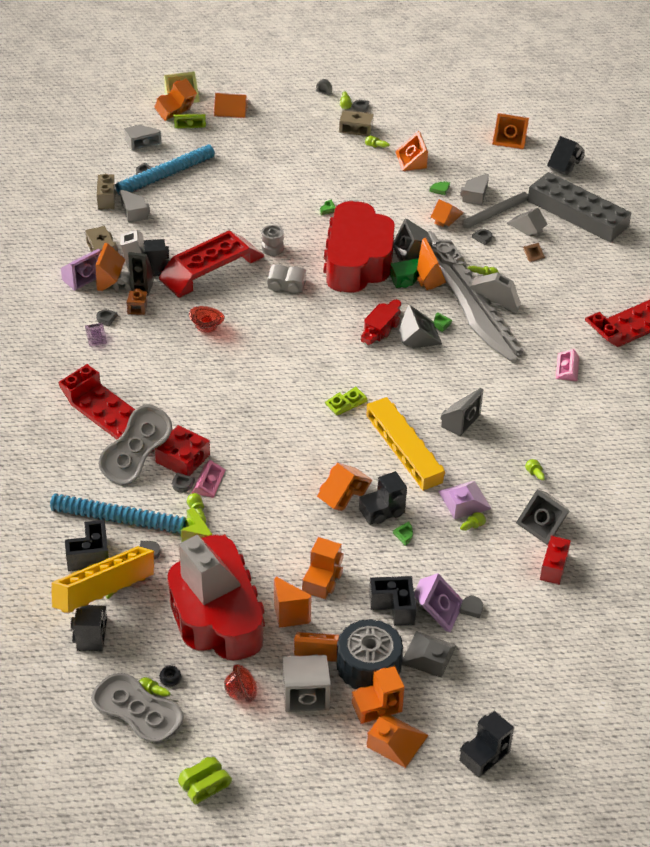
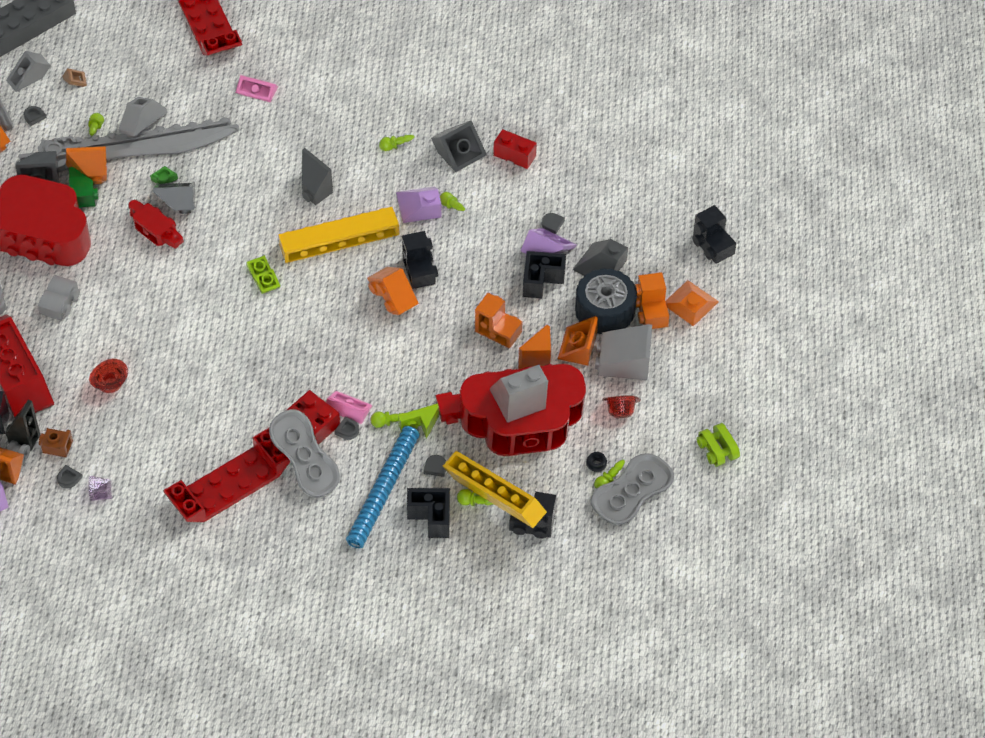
camera: 80 degrees left, 10 degrees up
(404, 533) = (453, 258): bright green tile -> none

